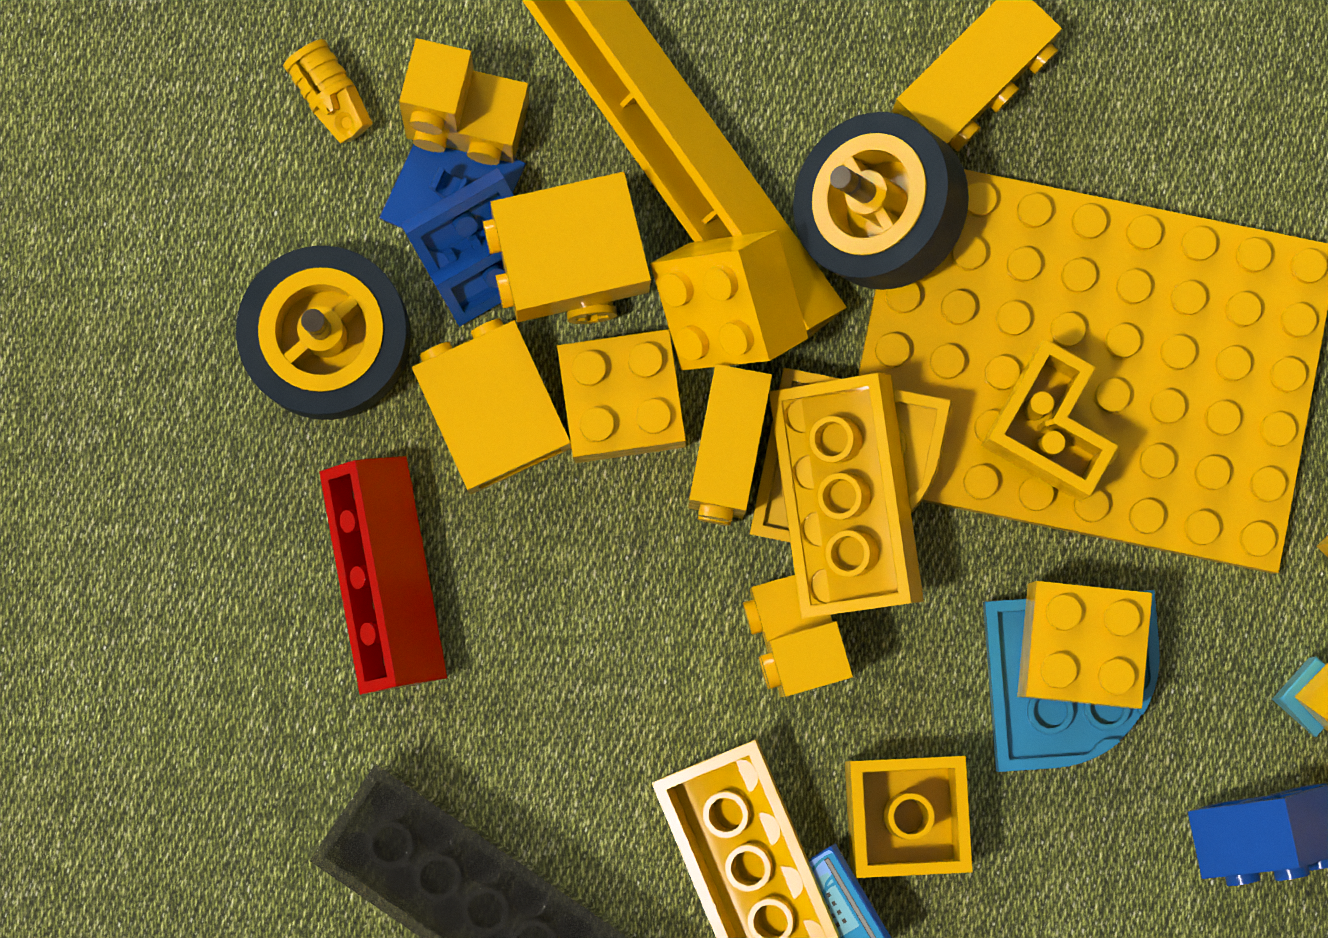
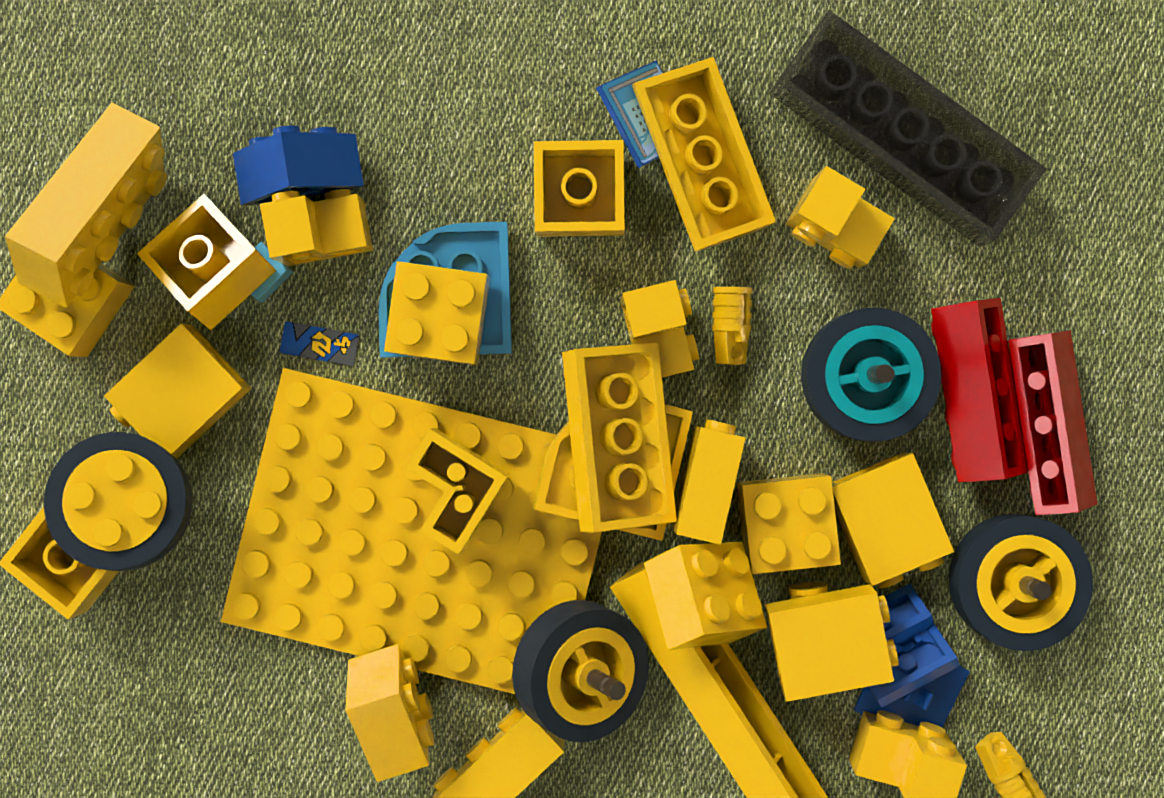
camera: 175 degrees left, 5 degrees up
(287, 536) = (1052, 423): none -> red brick
(522, 589) = (871, 374): none -> wheel
(568, 788) = (839, 219): none -> yellow brick
(701, 650) = (731, 324): none -> yellow hinge
(1120, 140) = (389, 712): none -> yellow brick
(1232, 607) = (319, 343): none -> sticker
(1253, 749) = (315, 231): none -> yellow brick

